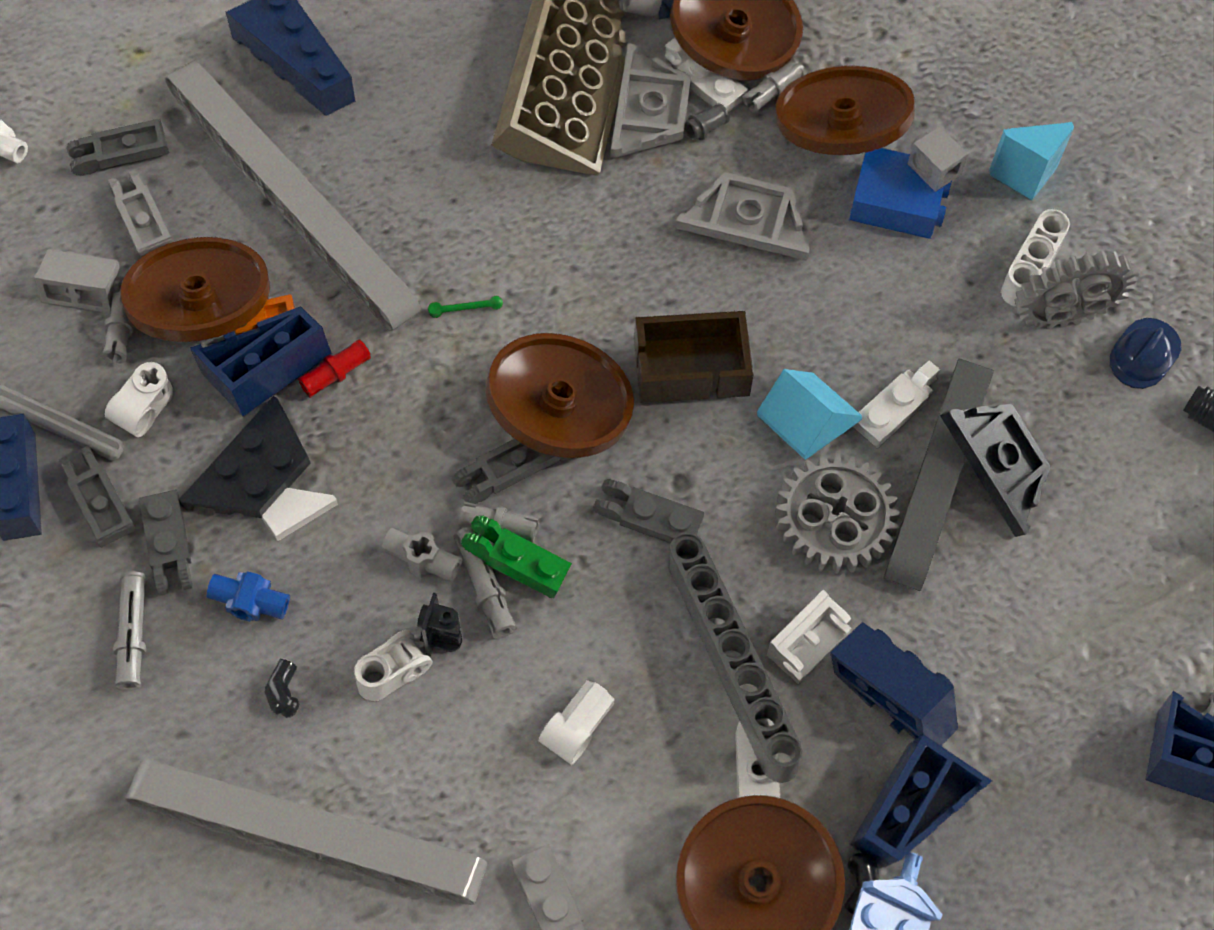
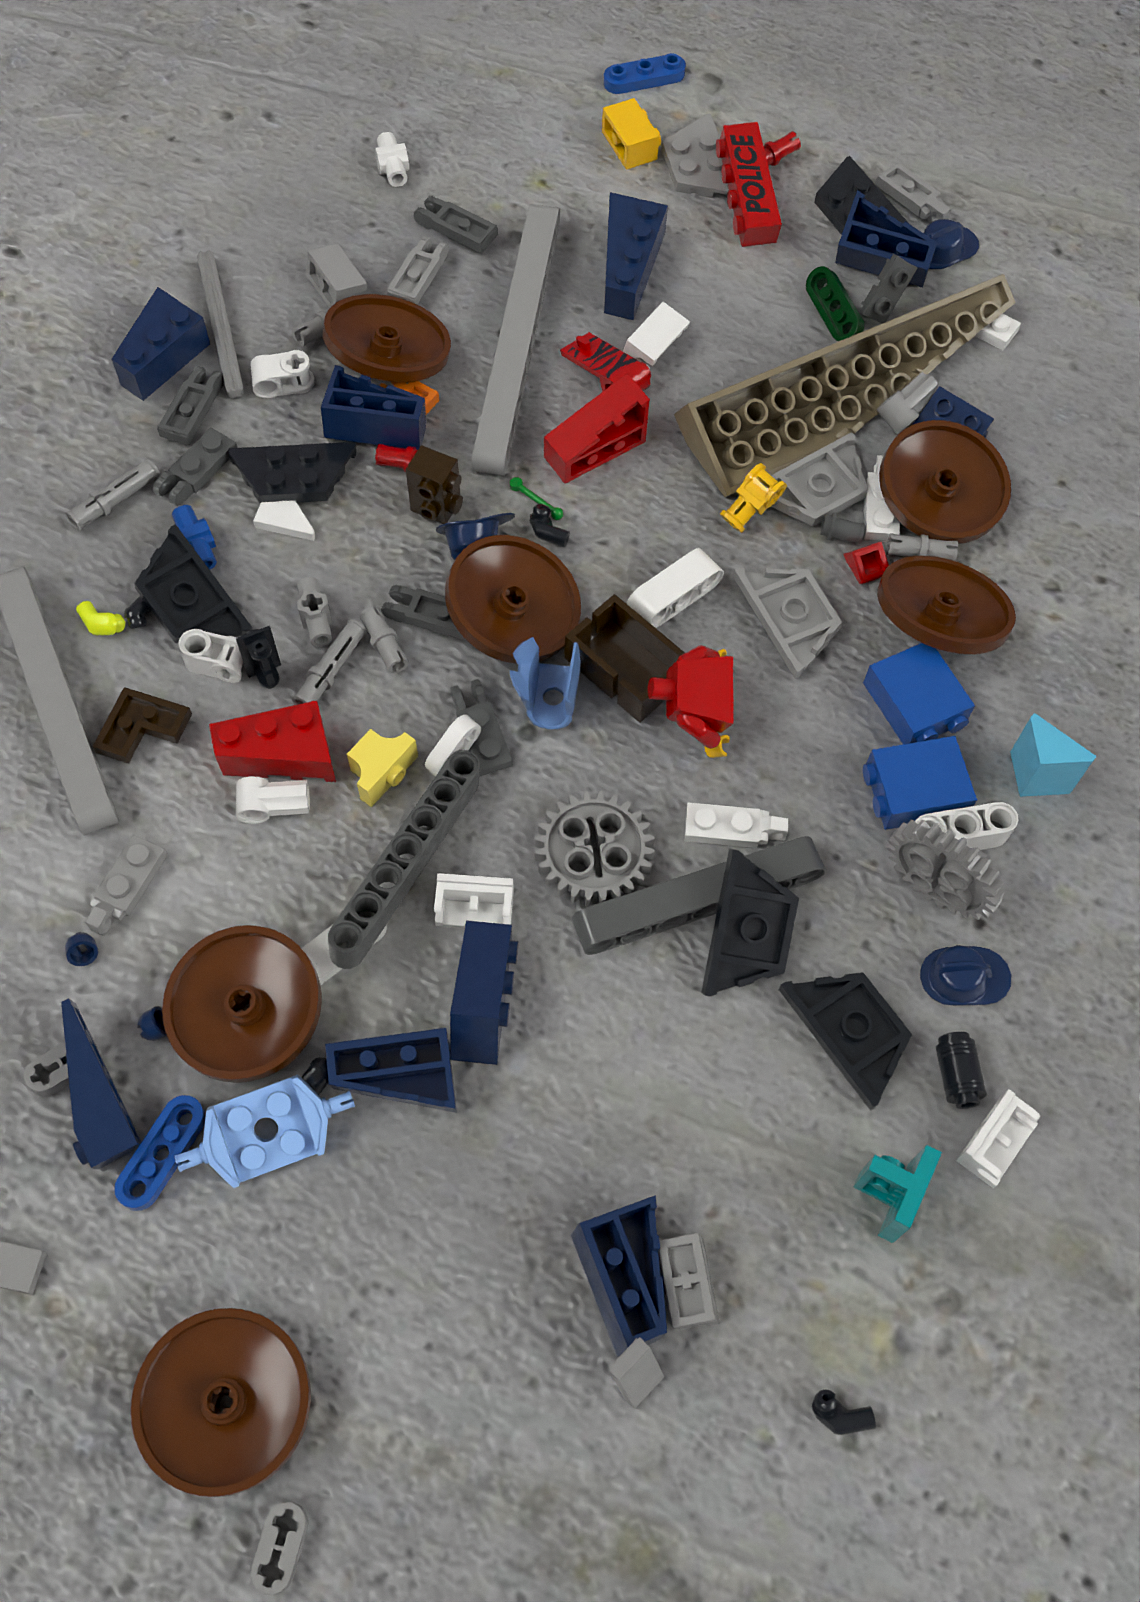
camera: 50 degrees right, 0 degrees up
(260, 740) = (100, 623): none -> neon yellow arm
(307, 642) = (186, 592): none -> black wing
(391, 777) = (139, 715): none -> dark brown plate
(394, 366) = (434, 485): none -> dark brown brick
(398, 99) = (656, 334): none -> white hinge
(410, 150) = (606, 361): none -> red door
(454, 209) = (599, 430): none -> red wedge
(468, 379) = (463, 533): none -> dark blue piece
(502, 323) = (544, 528): none -> black arm
(516, 556) = (364, 670): green hinge -> none
(530, 678) = (274, 743): none -> red wedge
(620, 614) = (380, 763): none -> light yellow brick
(627, 152) = (753, 497): none -> yellow connector
(653, 272) = (676, 587): none -> white beam
(658, 545) = (459, 736): none -> white beam
(672, 415) = (537, 678): none -> medium blue piece
(748, 129) = (867, 562): none -> red slope
(785, 329) = (699, 696): none -> red torso
(806, 412) = (662, 767): medium azure slope -> none
(937, 158) = (962, 690): light grey brick -> none
(973, 251) = (917, 780): none -> blue brick
(1133, 457) = (852, 1028): none -> black wing

